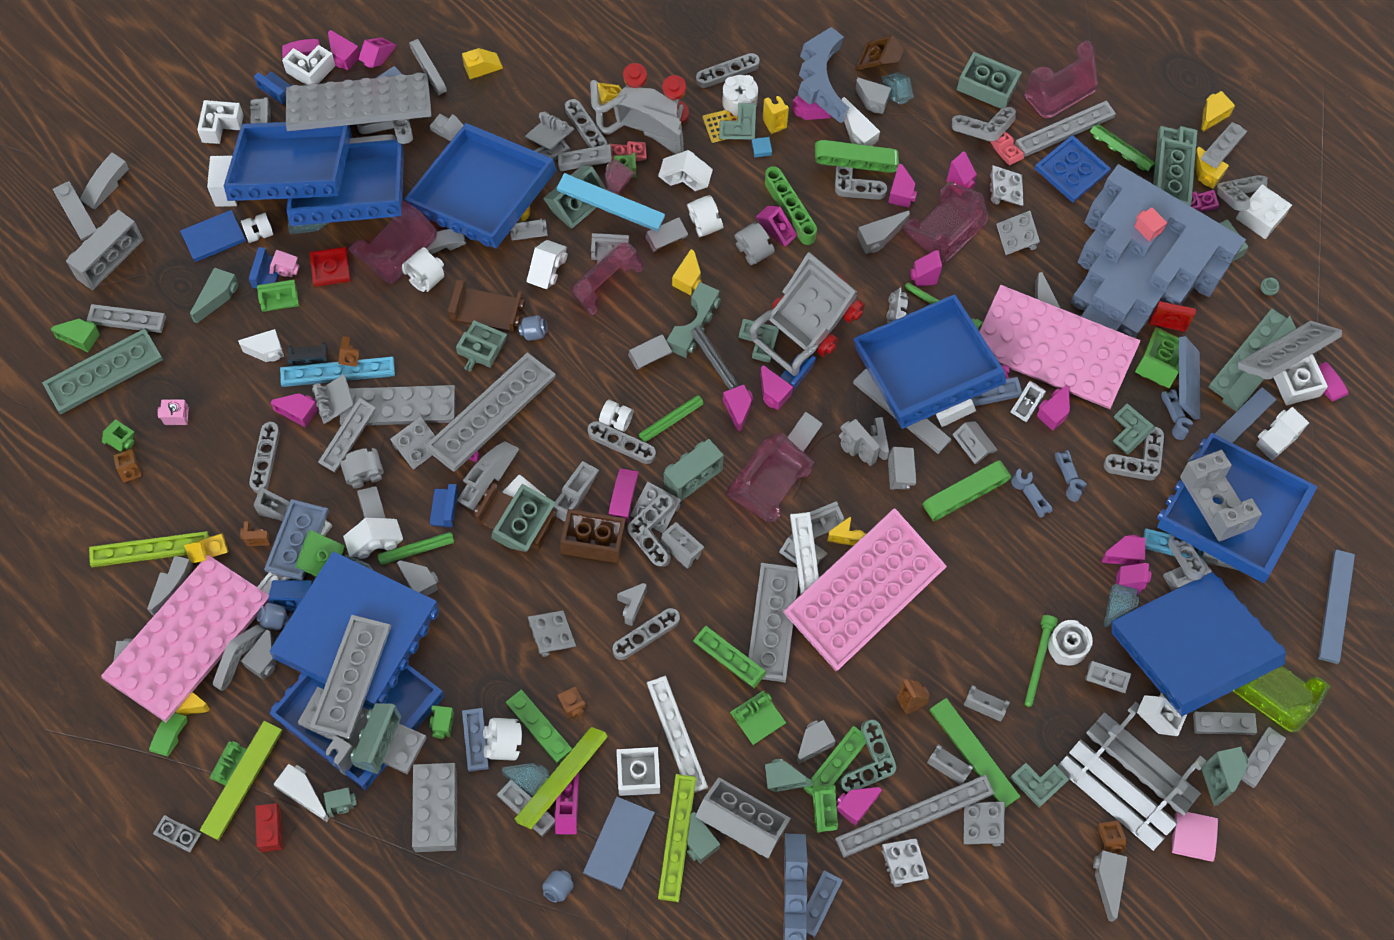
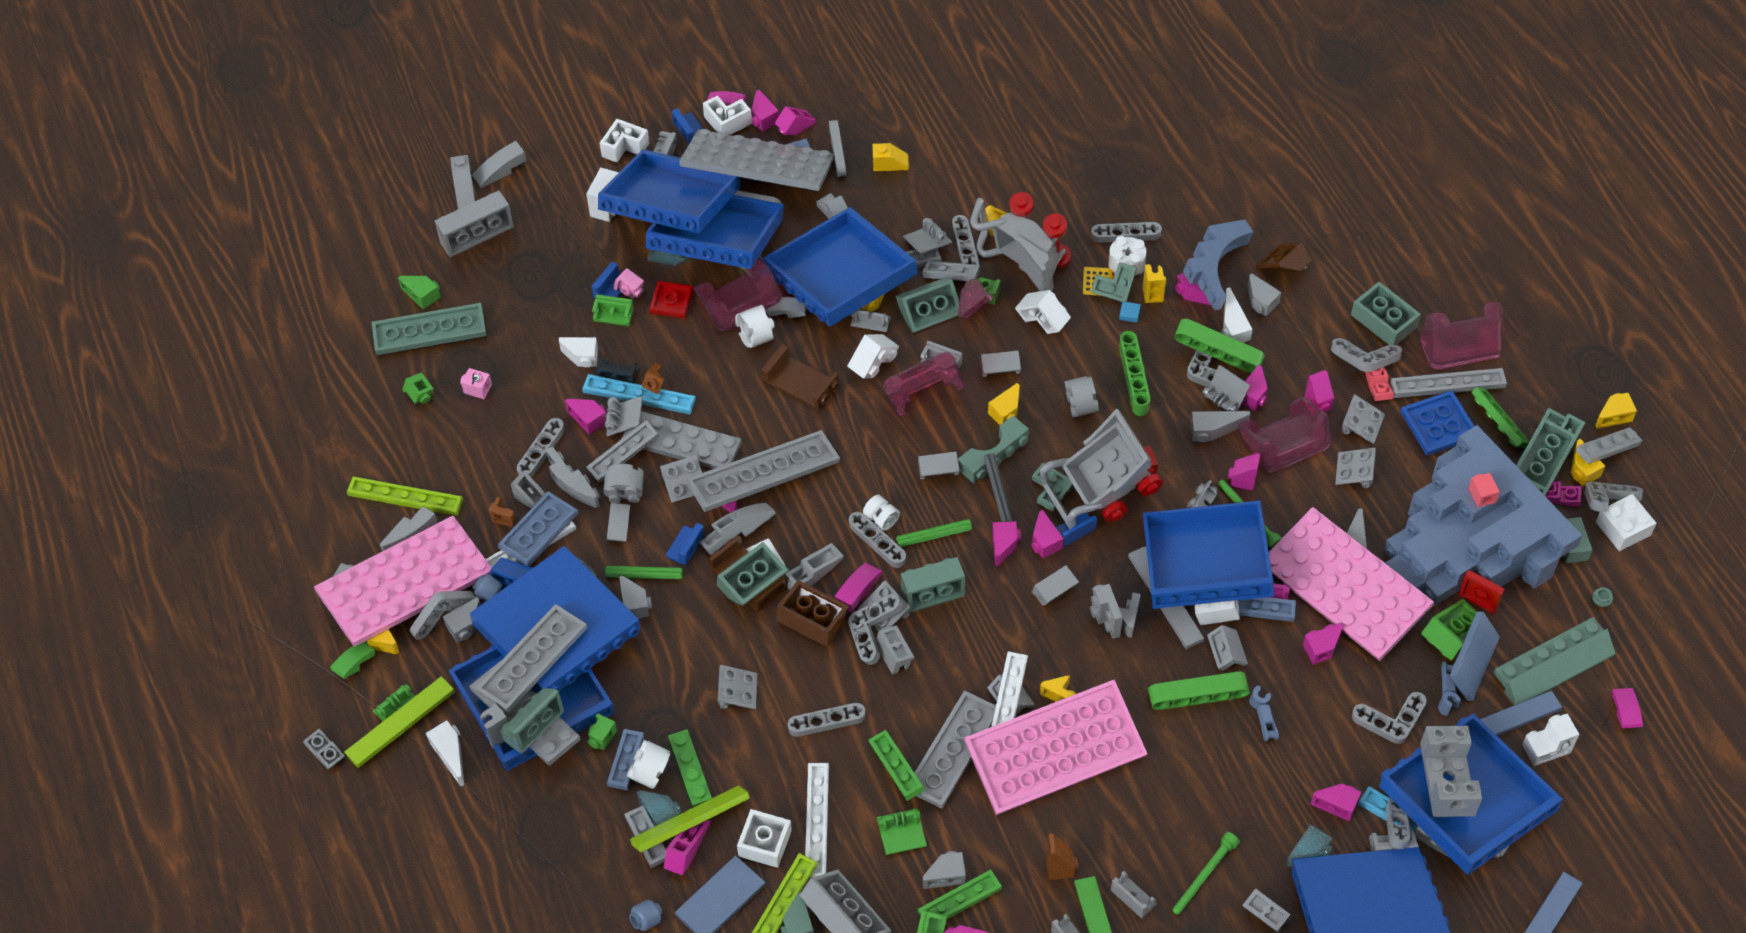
camera: 25 degrees right, 10 degrees down
(126, 318) = (469, 289): light grey plate -> none
(127, 465) = (414, 417): dark orange bracket -> none
(212, 546) = (458, 508): yellow slope -> none
(213, 236) = (576, 241): blue tile -> none
(215, 293) = (556, 291): sand green slope -> none
(263, 226) = (625, 245): white wheel -> none
(269, 827) = (406, 771): red brick -> none
(310, 482) = (571, 482): none -> light grey slope
(316, 552) = (549, 542): bright green plate -> none
(339, 801) = (478, 770): sand green brick -> none
(371, 535) = (607, 545): white brick -> none
(401, 127) = (788, 194): light grey beam -> none
(434, 807) = (562, 805): light grey brick -> none
(480, 345) = (780, 410): sand green plate -> none
(533, 327) = (836, 409): sand blue head -> none
(572, 702) = (730, 757): dark orange bracket -> none
(610, 202) = (956, 316): medium azure tile -> none
(634, 598) = (827, 684): light grey slope -> none
(638, 148) = (1007, 278): coral slope -> none
(705, 216) = (1044, 357): white brick -> none
(769, 476) = (1007, 615): clear pink windscreen -> none
(776, 225) = (1113, 387): dark pink slope -> none
(784, 776) = (901, 892): sand green slope -> none
(825, 519) = (1041, 670): light grey hinge -> none
(878, 759) = (1002, 908): sand green beam -> none
(880, 196) = (1226, 390): none -> light grey hinge
(900, 87) = (1290, 295): clear light blue slope -> none
(901, 468) = (1141, 649): light grey hinge -> none
(1028, 401) = (1297, 627): light grey slope -> none
(1071, 477) = (1312, 719): sand blue piece -> none
(1075, 634) = (1244, 876): white brick -> none
(1134, 576) = (1335, 825): dark pink slope -> none
(1136, 429) = (1397, 689): sand green plate -> none
(1289, 349) = (1592, 660): light grey plate -> none
(1301, 381) = (1593, 694): white brick -> none

